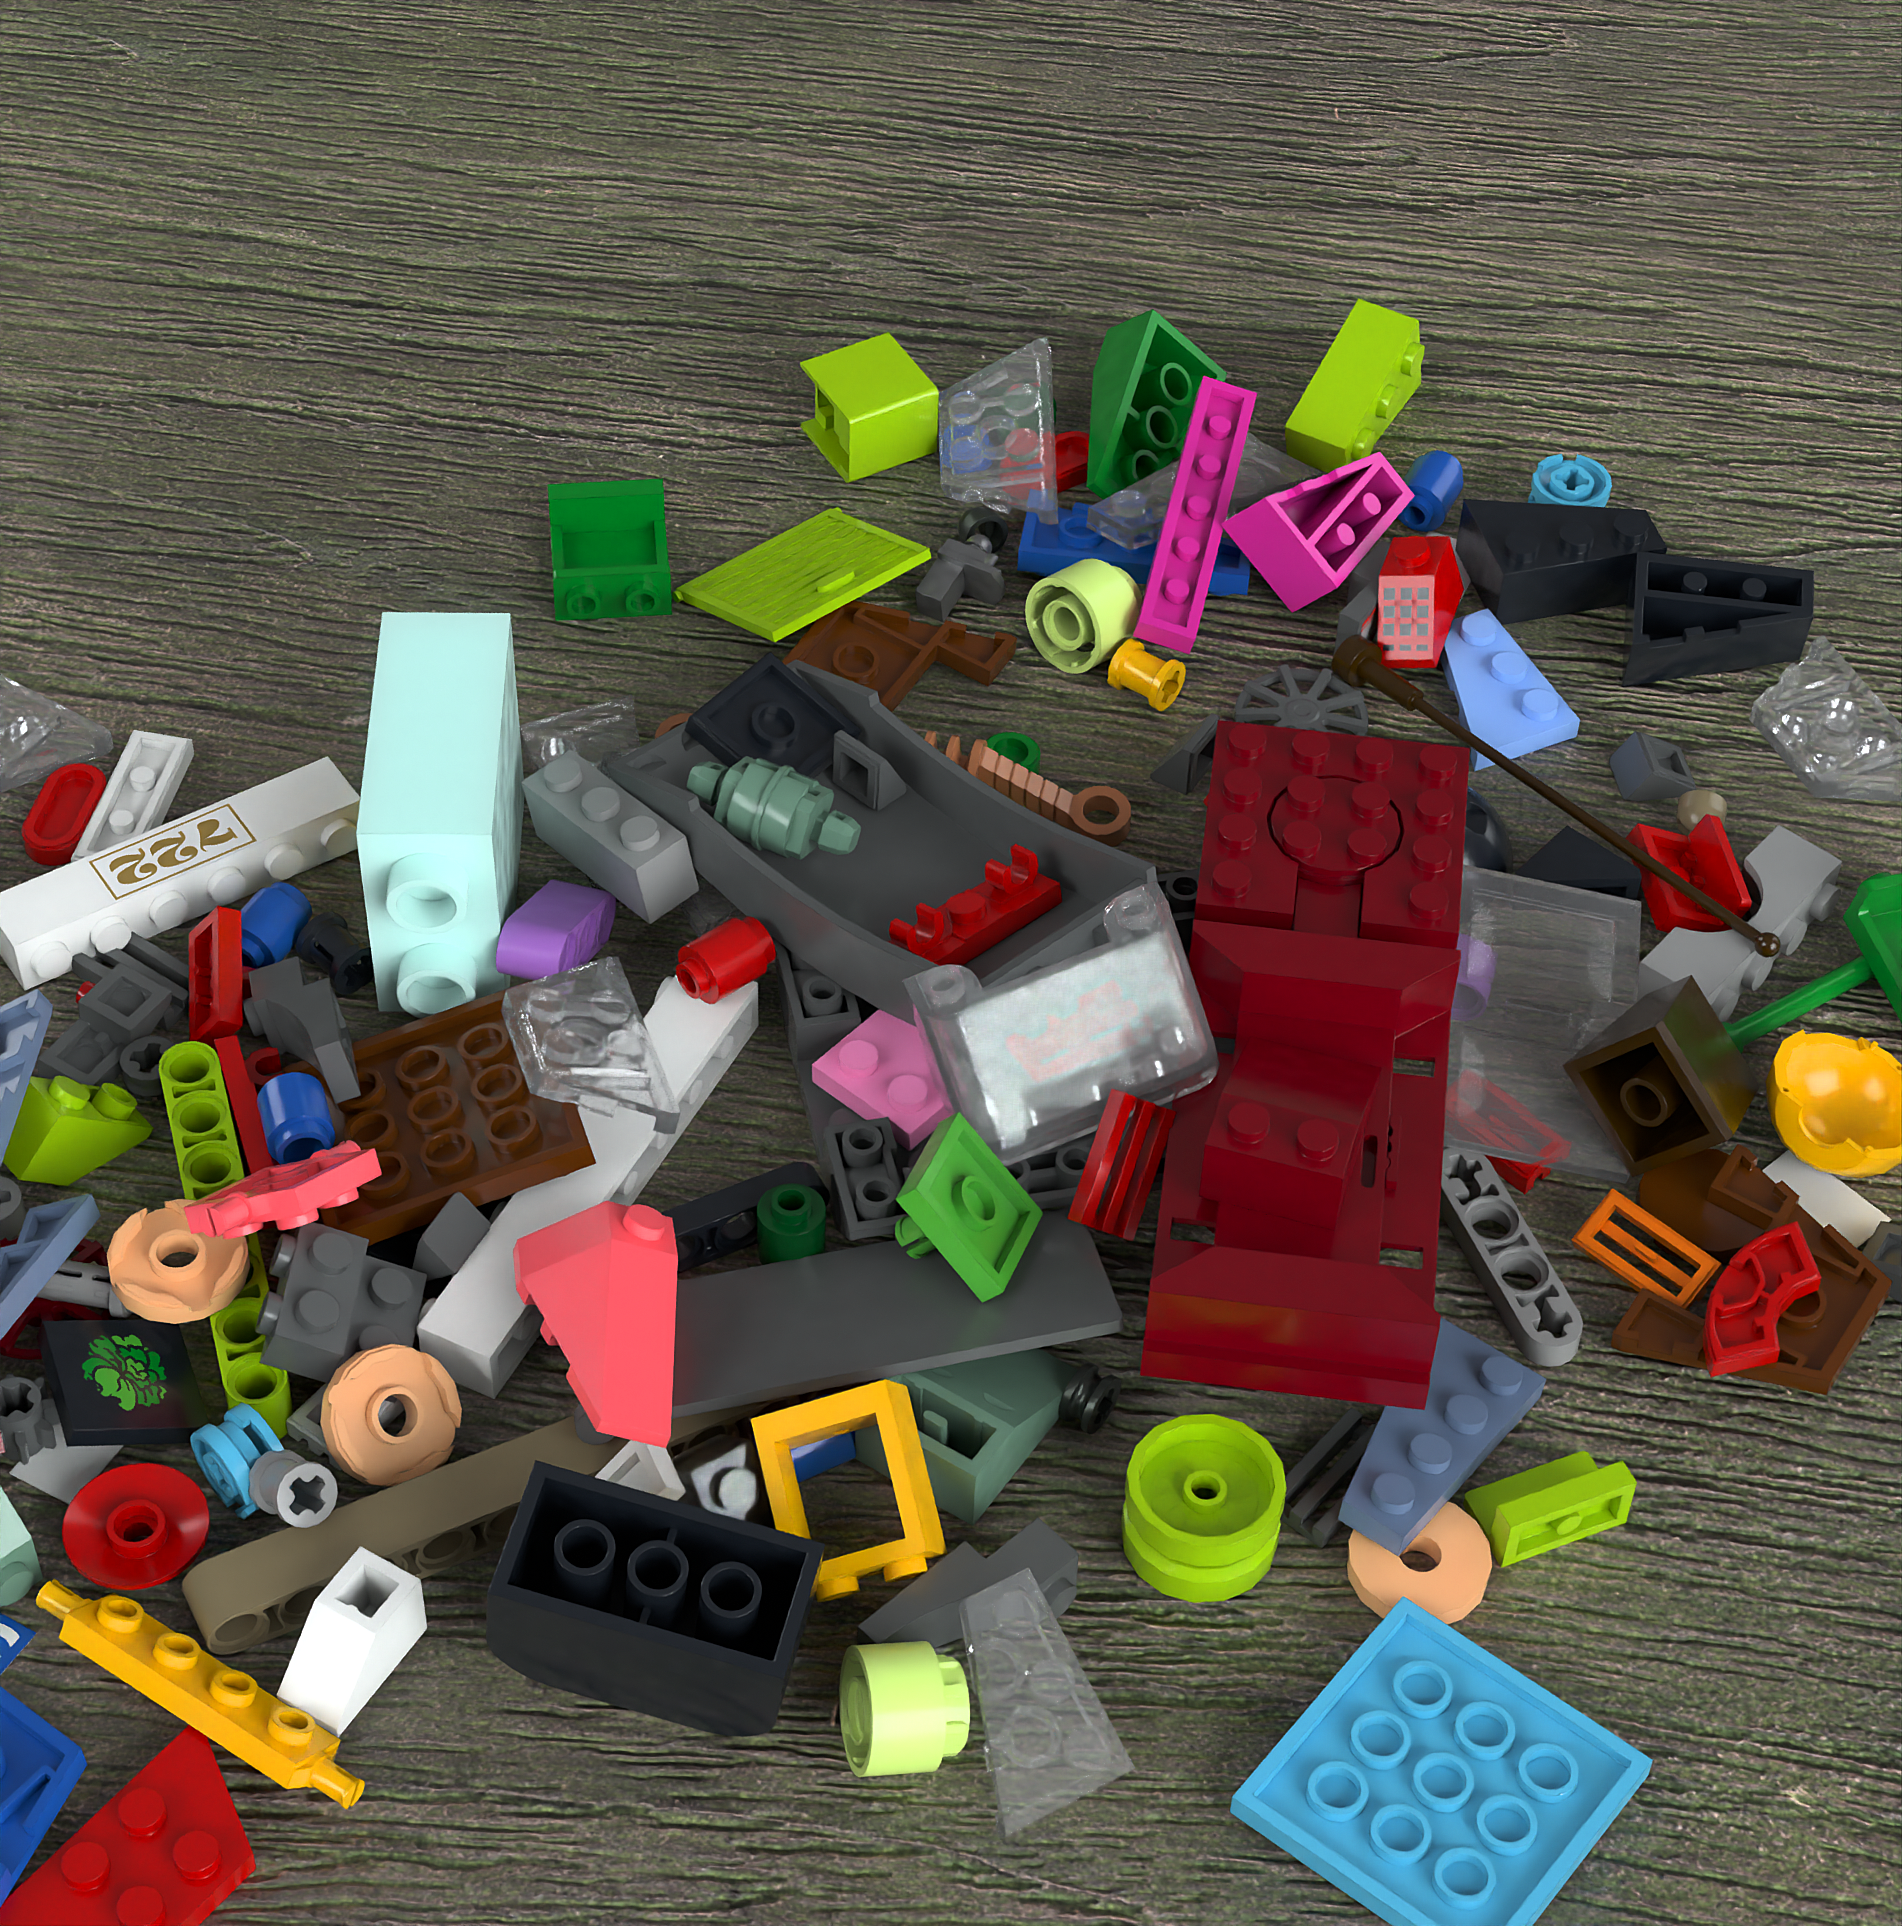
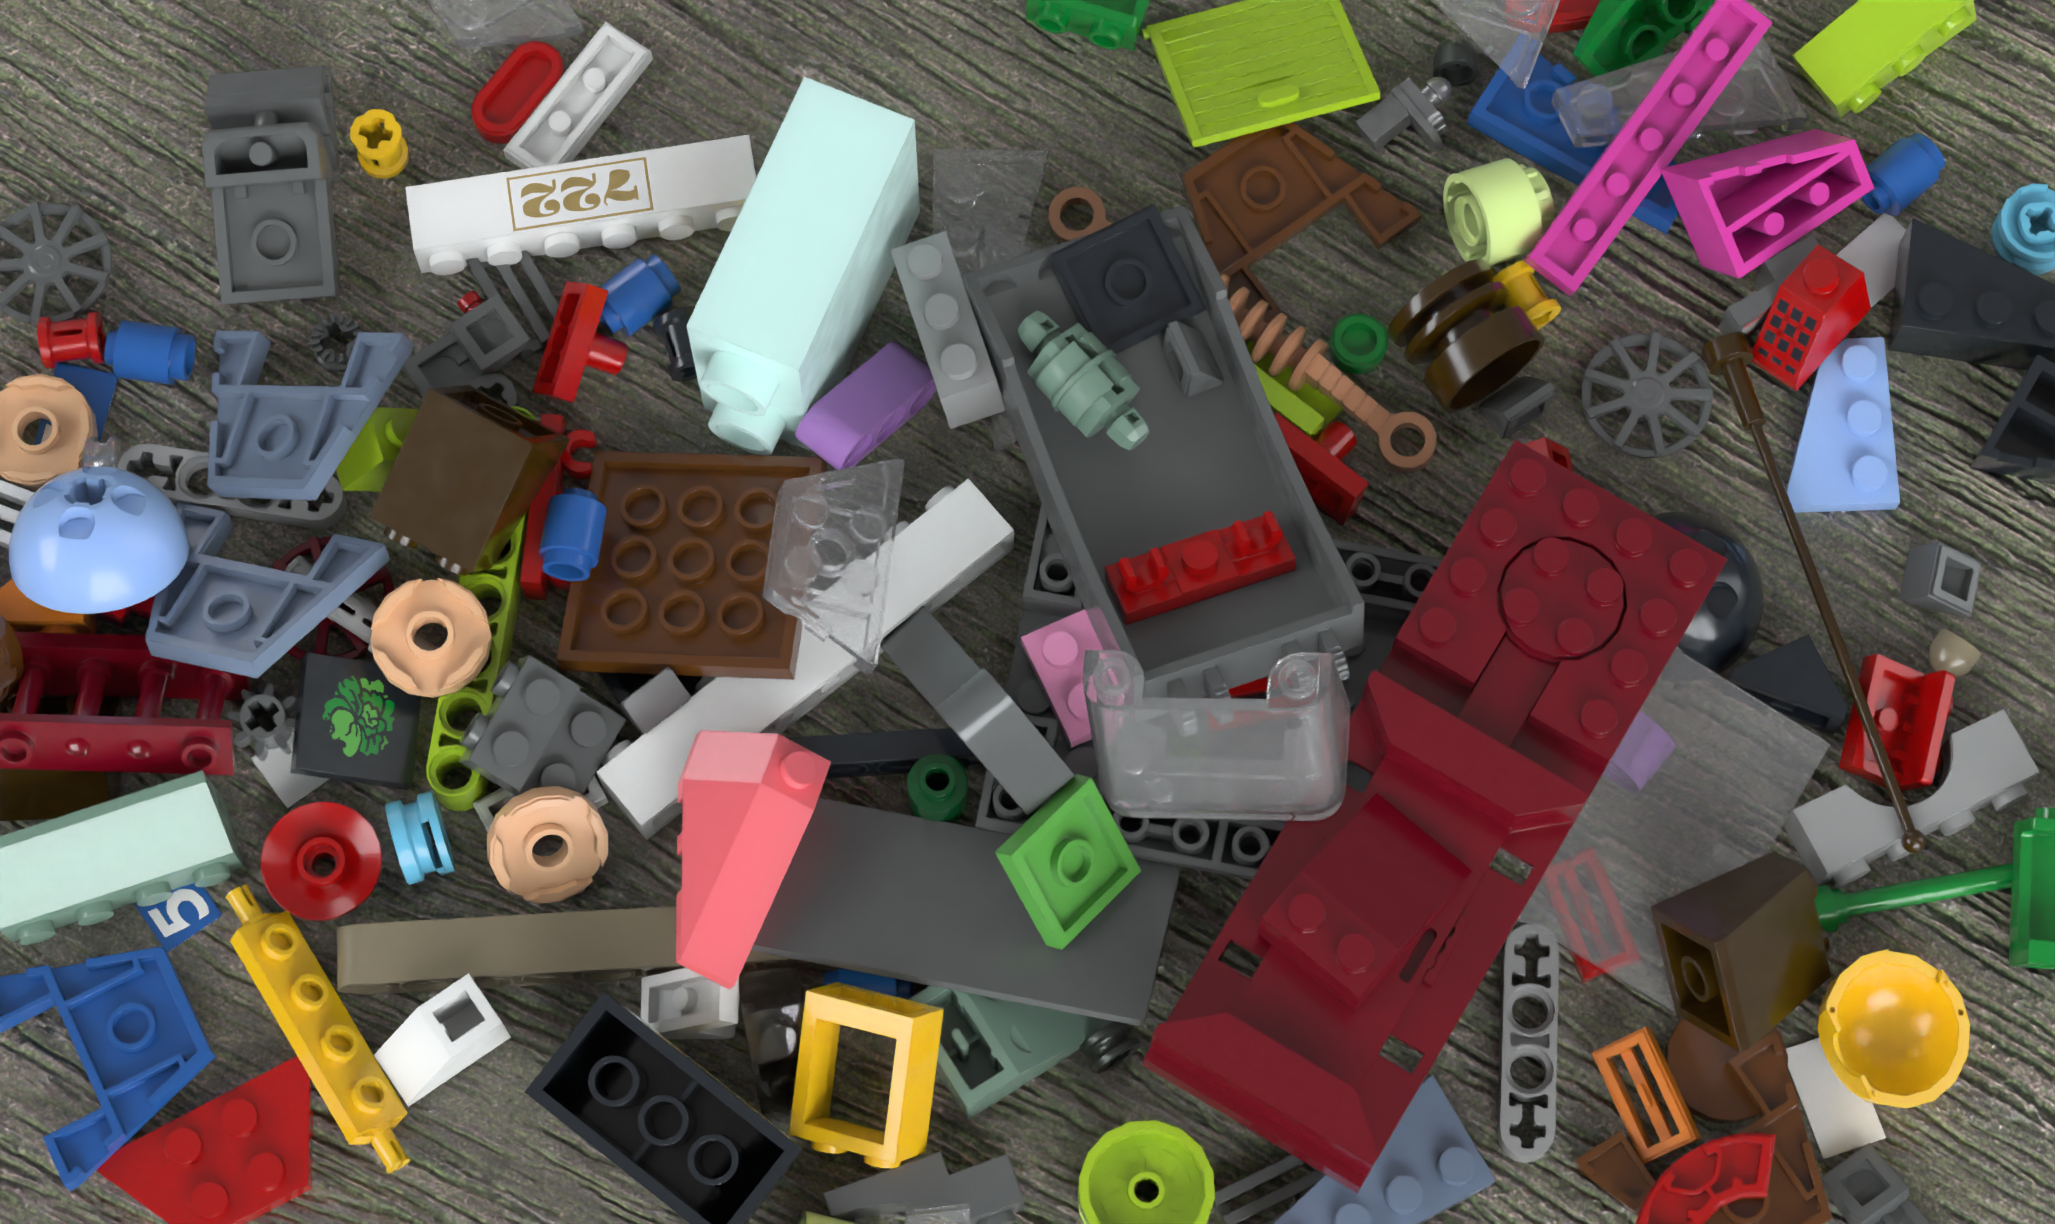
camera: 25 degrees right, 25 degrees up
(159, 1094) = (465, 477): none -> dark brown slope
(285, 1193) = (525, 622): coral plate -> none
(303, 1022) = (622, 406): dark grey slope -> none
(313, 1493) = (442, 901): light grey bush -> none
(725, 959) = (987, 508): red brick -> none
(843, 1112) = (977, 710): none -> dark grey beam
(1112, 702) = (1460, 328): none -> dark brown wheel
(1130, 1168) = (1227, 865): red tile -> none

